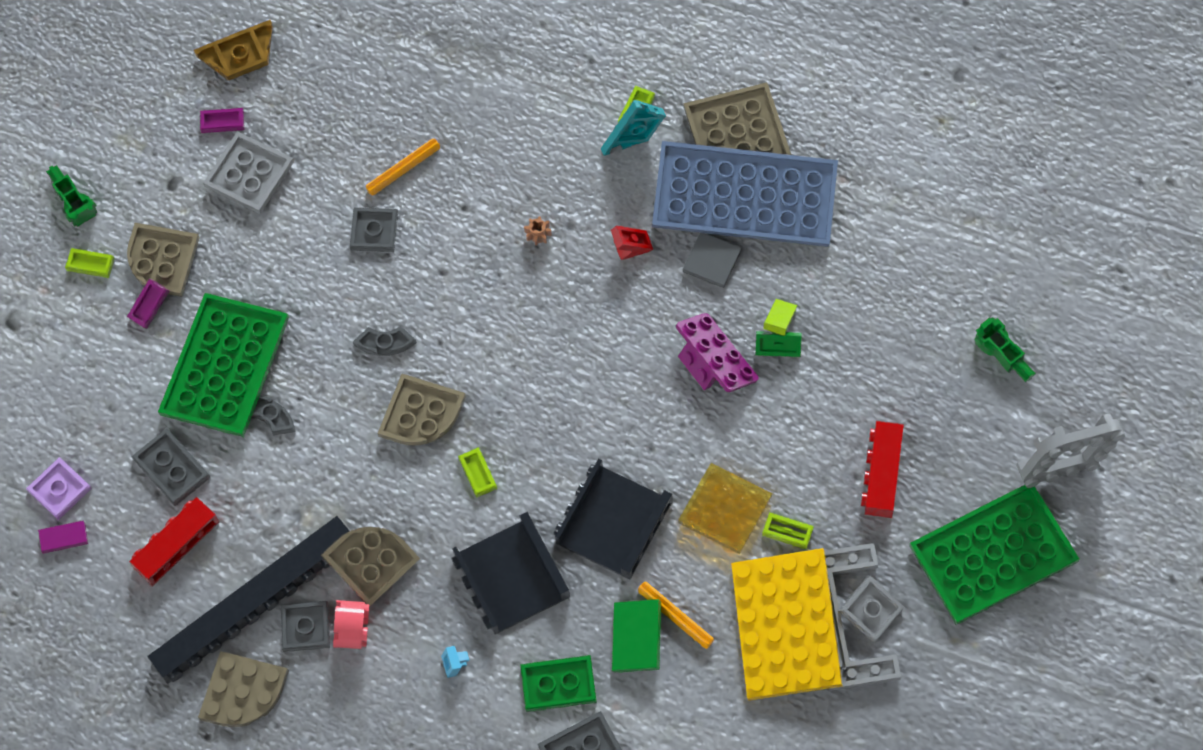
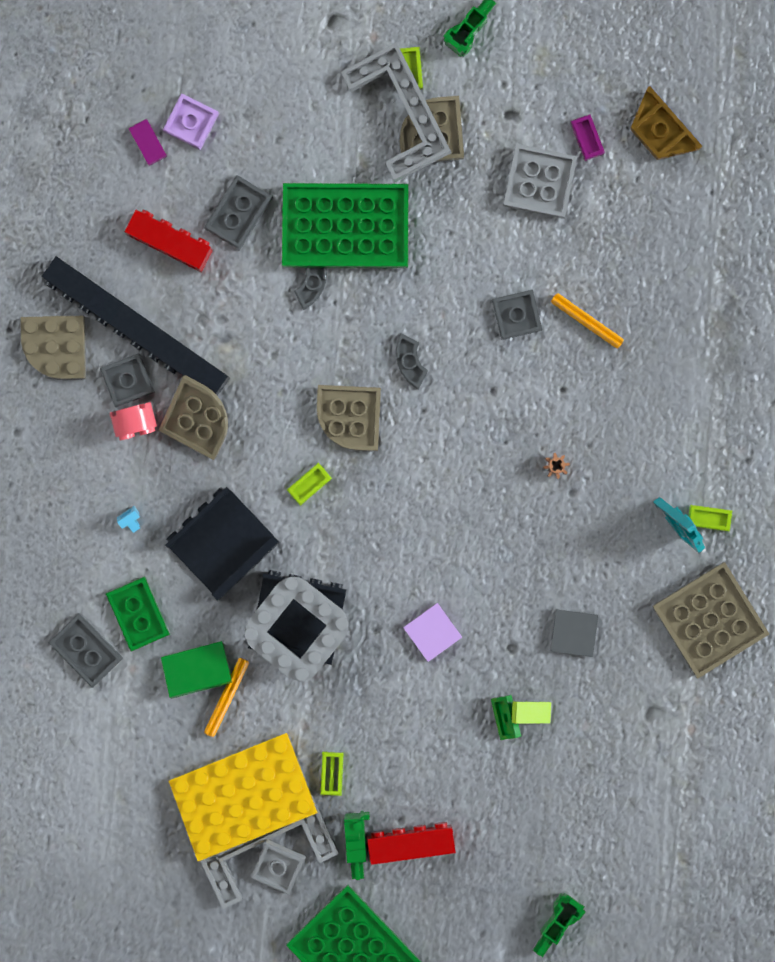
camera: 65 degrees right, 20 degrees up
(148, 303) = (383, 136): magenta tile -> none
(170, 253) = (433, 142): none -> light grey plate
(631, 241) = (569, 555): red slope -> none
(641, 540) = (276, 652): none -> light grey plate
(670, 393) = (432, 632): none -> lavender tile
(712, 355) = (477, 662): magenta bracket -> none
(725, 508) = (335, 713): clear yellow plate -> none
(745, 193) = (646, 646): sand blue plate -> none
(866, 523) = (355, 842): none -> green piece

